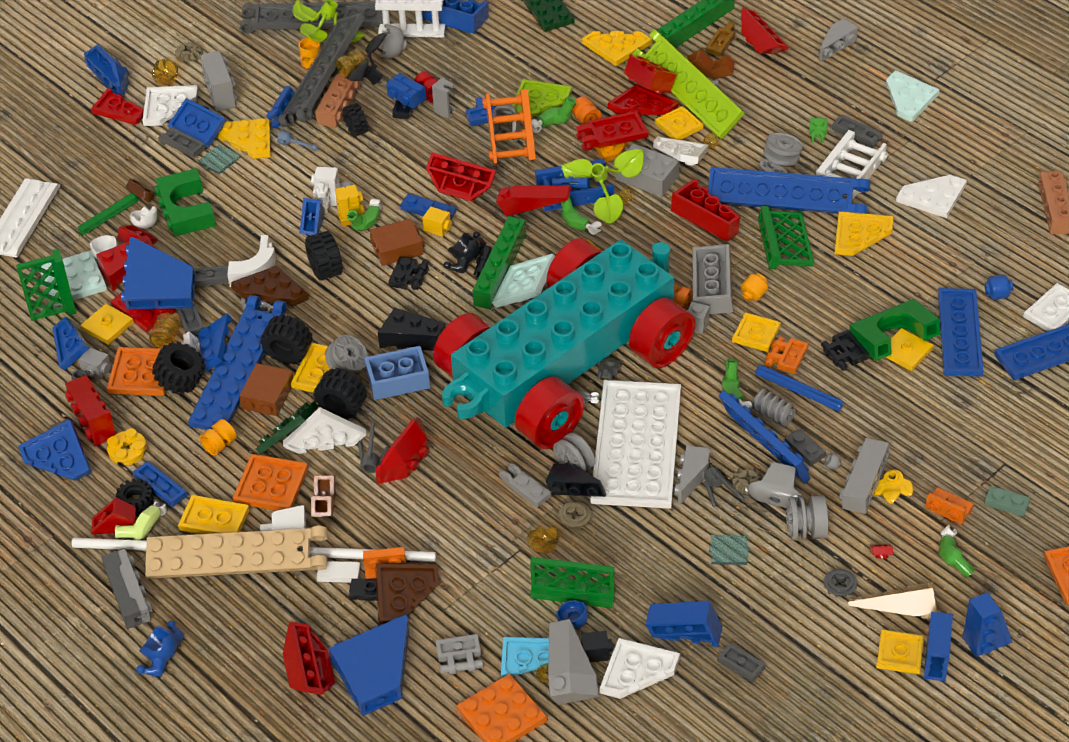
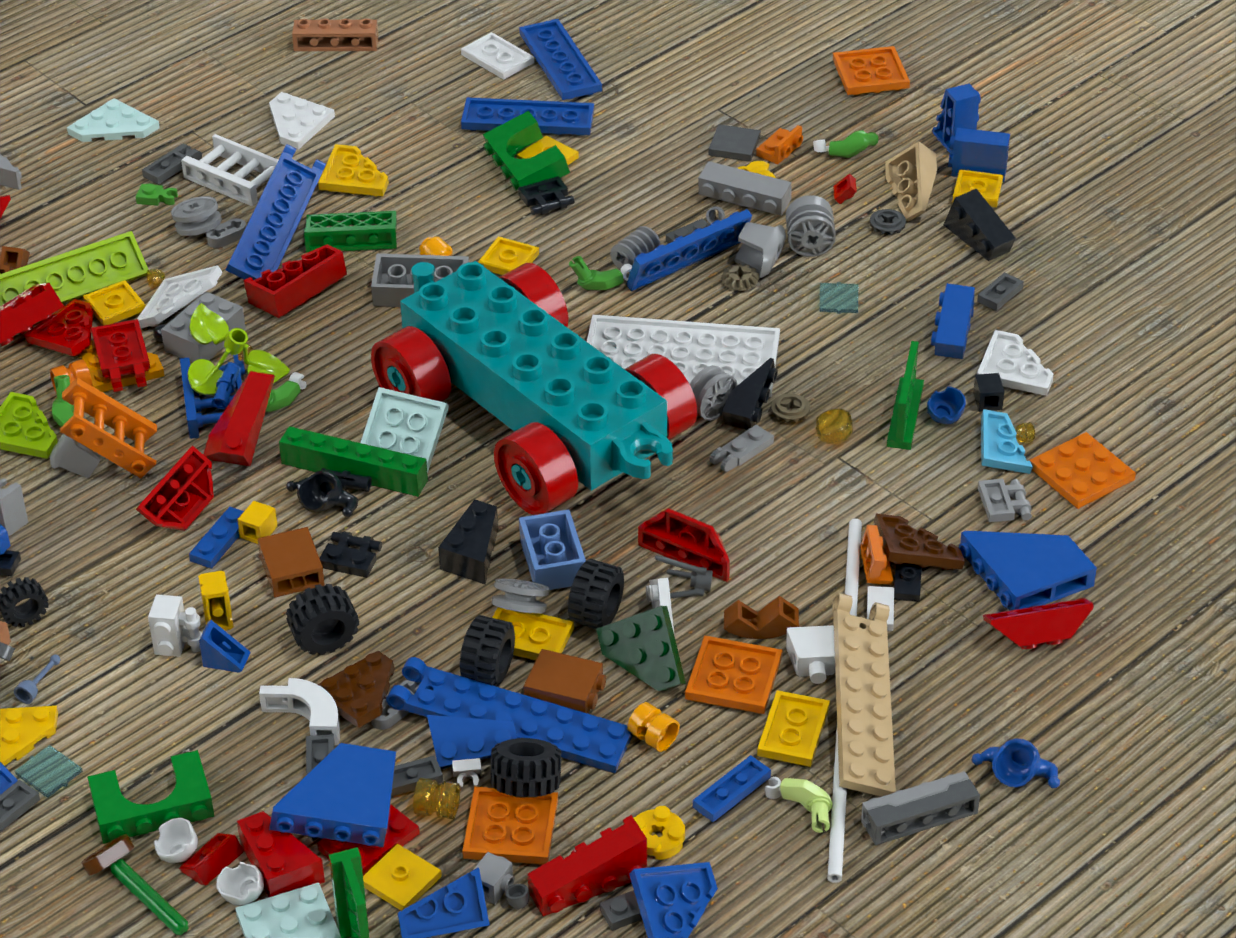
camera: 90 degrees left, 5 degrees down
(115, 513) = (797, 832): red slope -> none
(136, 488) = (755, 825): black tyre -> none
(368, 219) = (240, 594): bright green arm -> none
(478, 115) = (36, 480): blue hinge -> none
(569, 666) = (1035, 403): light grey wedge -> none
(695, 463) = (728, 309): light grey slope -> none
(716, 479) = (740, 296): dark grey plant -> none
(792, 356) = (552, 233): orange plate -> none
(799, 387) = (601, 232): blue axle -> none
(828, 644) = (979, 225): none -> black wedge
(948, 473) = (734, 142): none -> dark grey tile
(998, 287) = (464, 84): blue head -> none
(1007, 501) = (773, 110): sand green plate -> none

